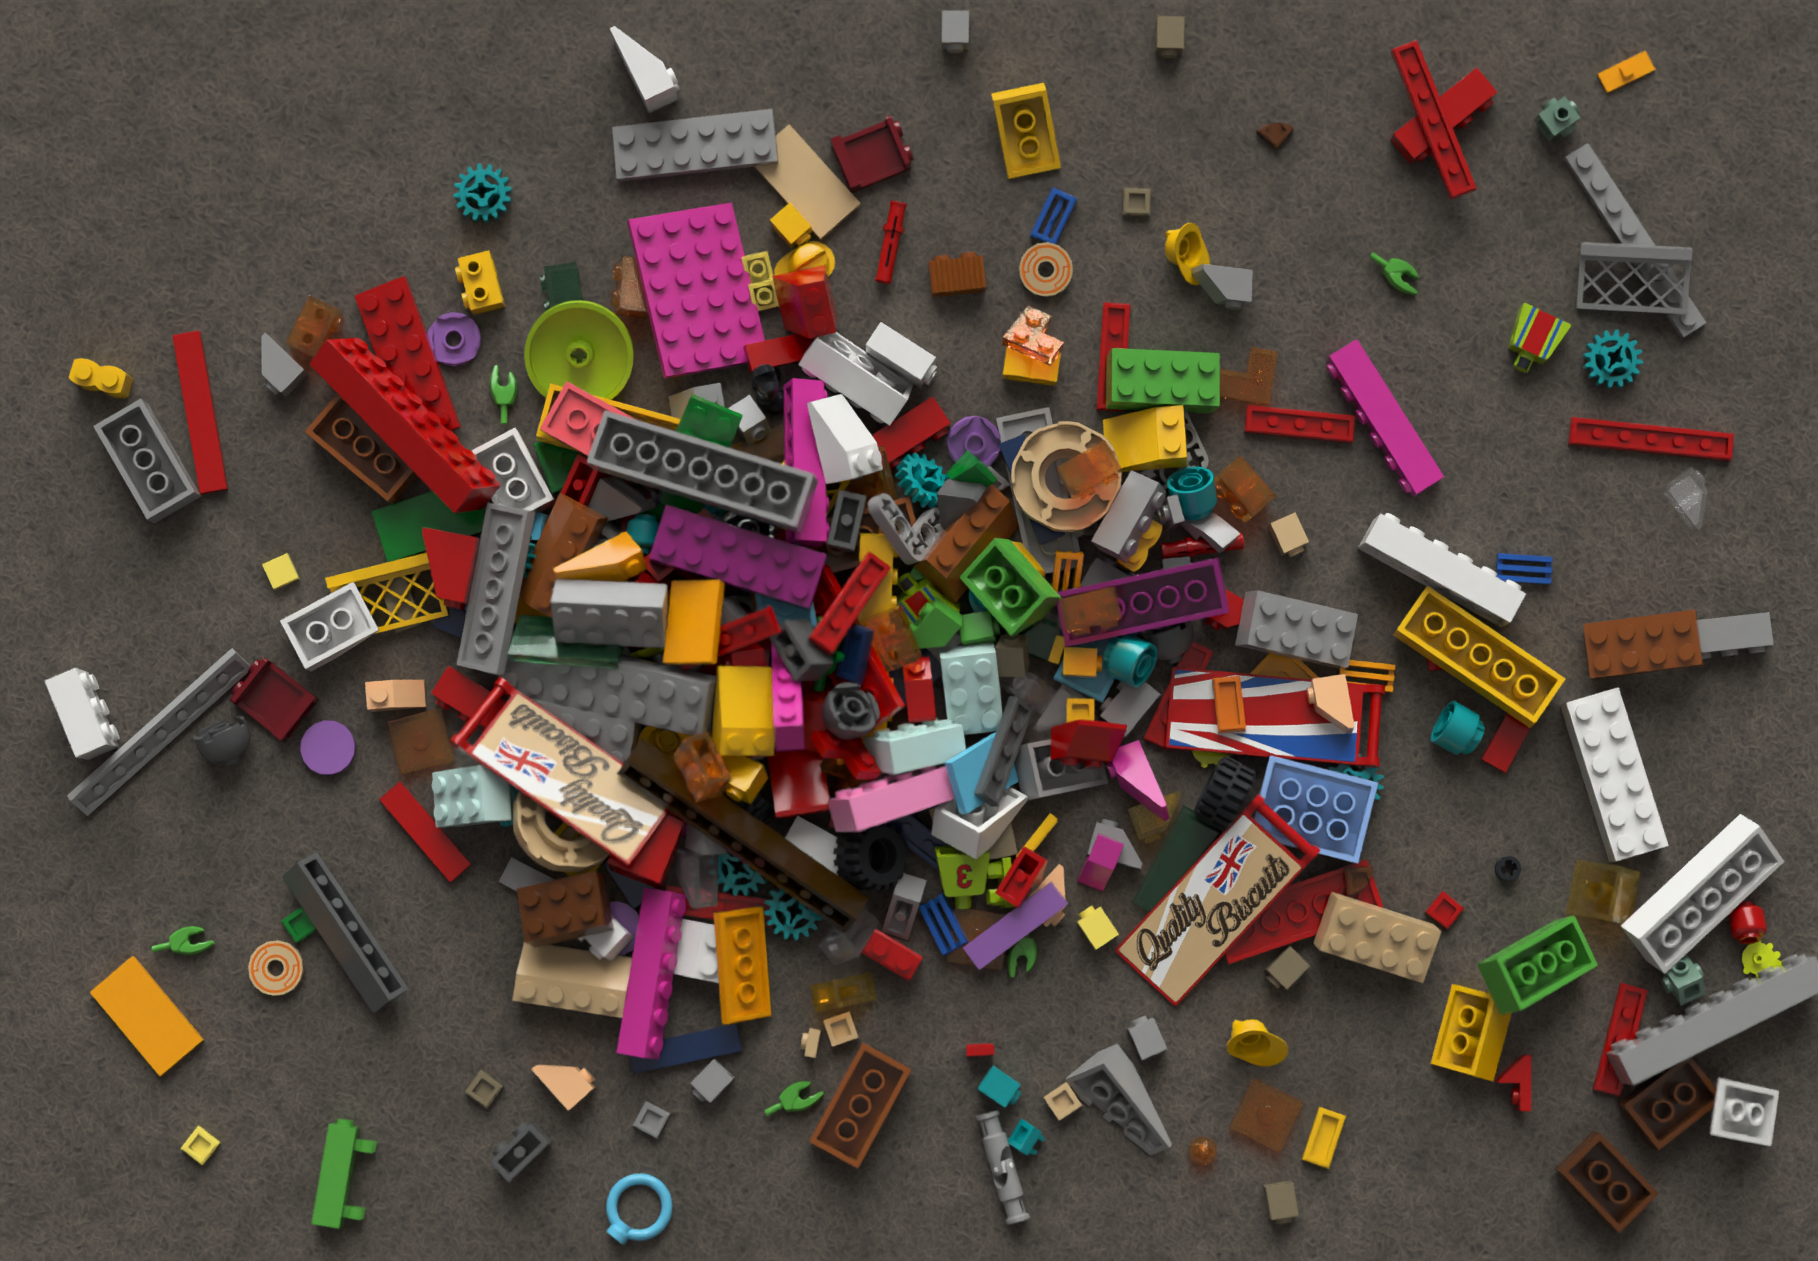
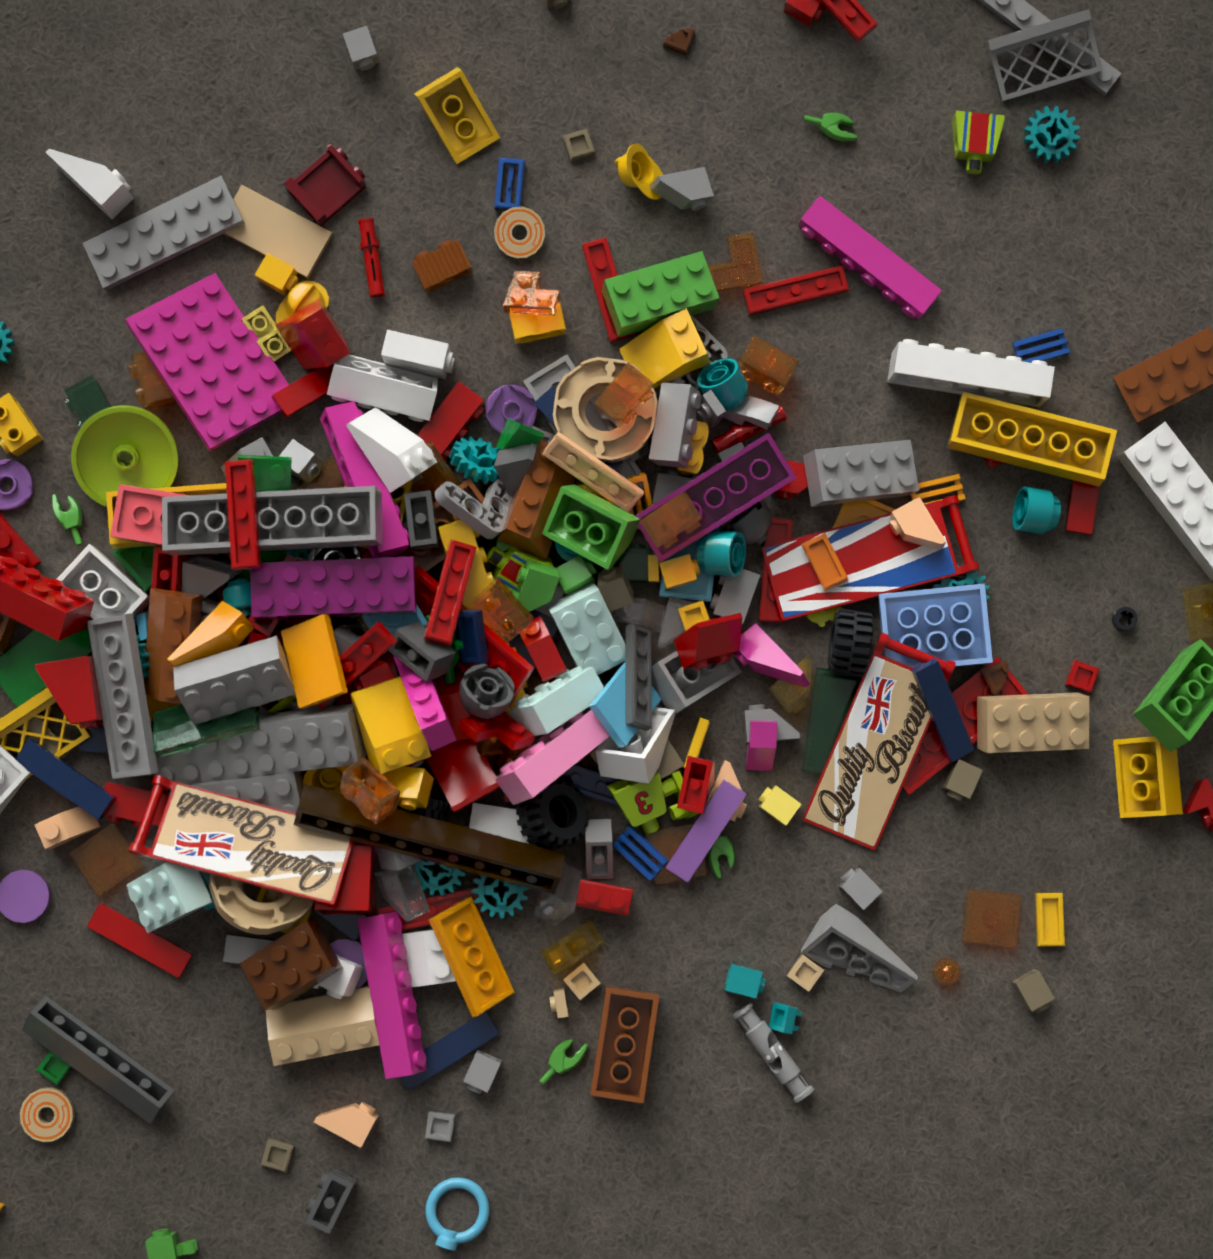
camera: 25 degrees left, 0 degrees up
(410, 648) = (65, 779): none -> dark blue tile
(676, 456) = (242, 515): none -> red tile
(766, 383) = (304, 423): black piece -> none
(979, 1049) = (714, 953): red tile -> none
(1031, 534) = (593, 472): none -> light nougat tile
(1255, 1044) = (959, 858): yellow piece -> none
(1288, 535) = (822, 392): tan brick -> none
(1291, 892) = (943, 710): none -> dark blue tile
(1651, 439) = (1110, 193): red tile -> none
(1687, 497) = (1162, 233): clear slope -> none

